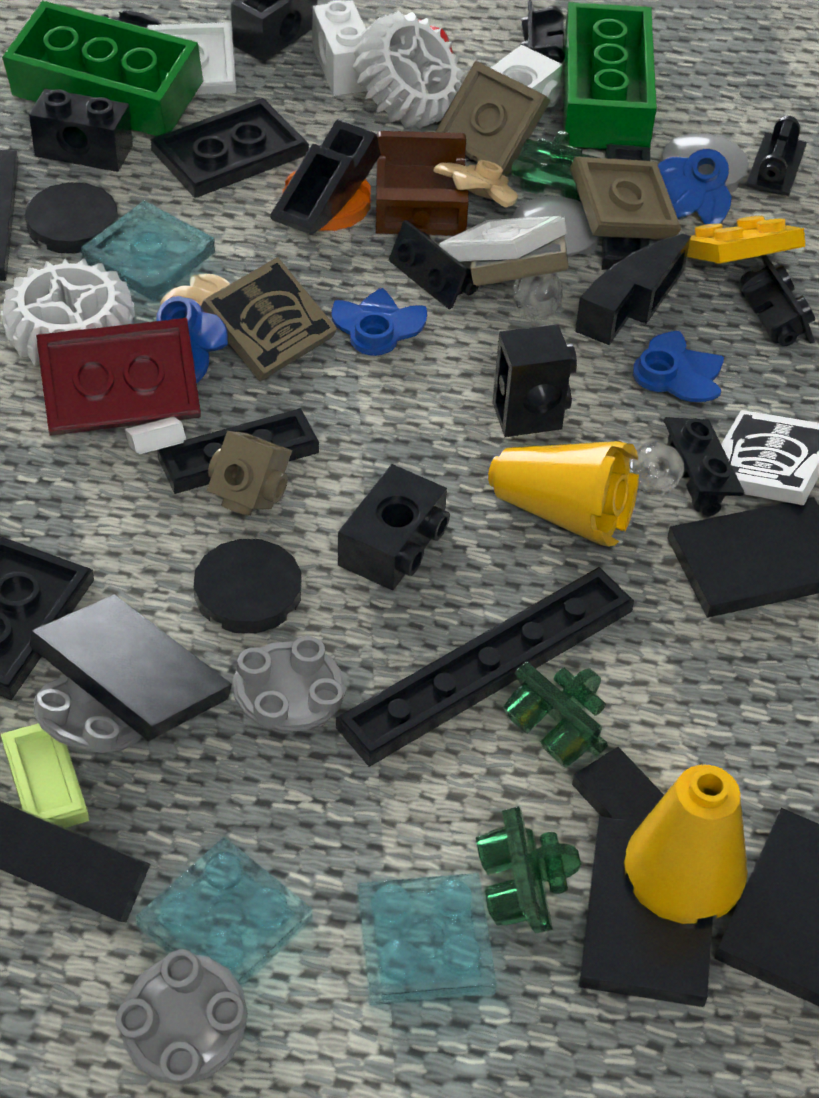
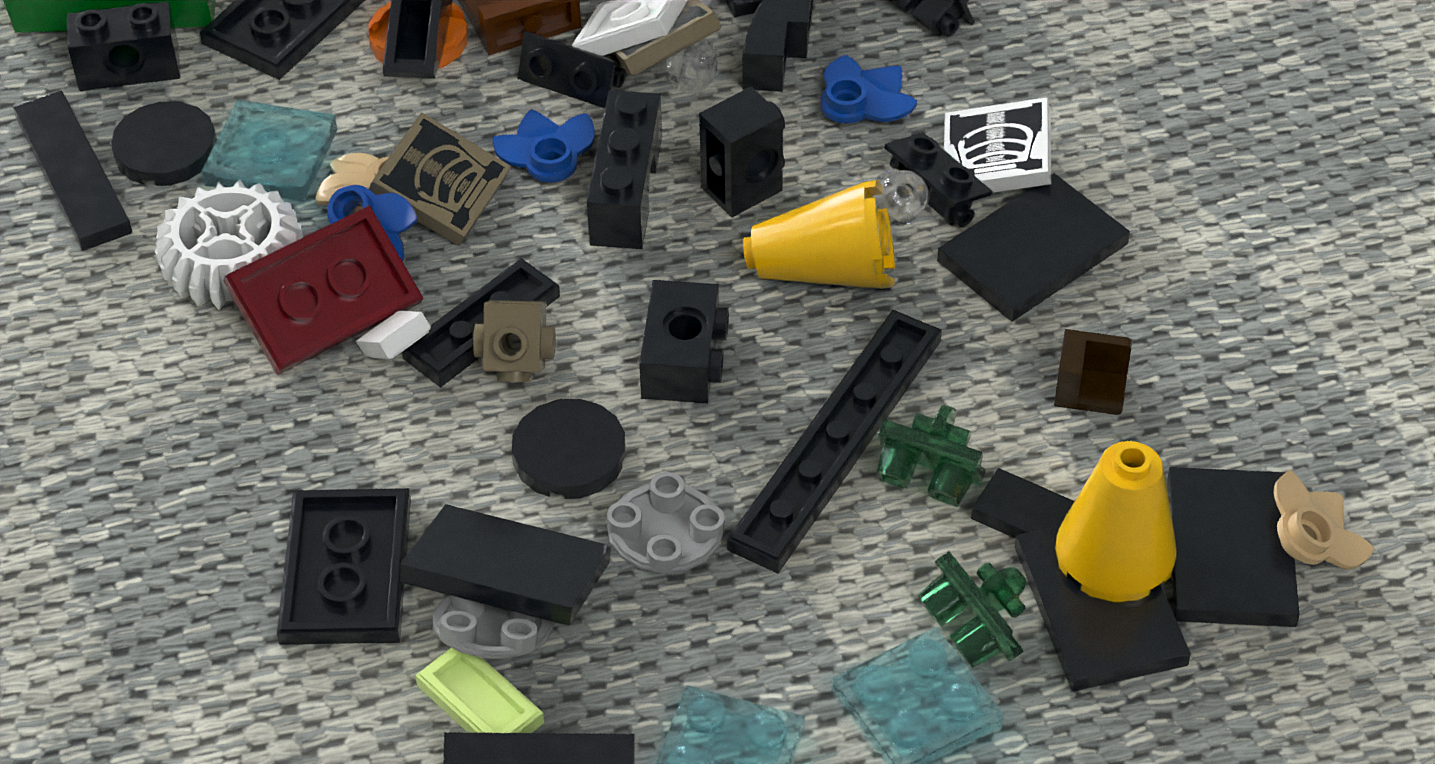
camera: 20 degrees left, 0 degrees up
(409, 378) = (622, 169): none -> black arch
(753, 690) = (1093, 372): none -> dark brown panel

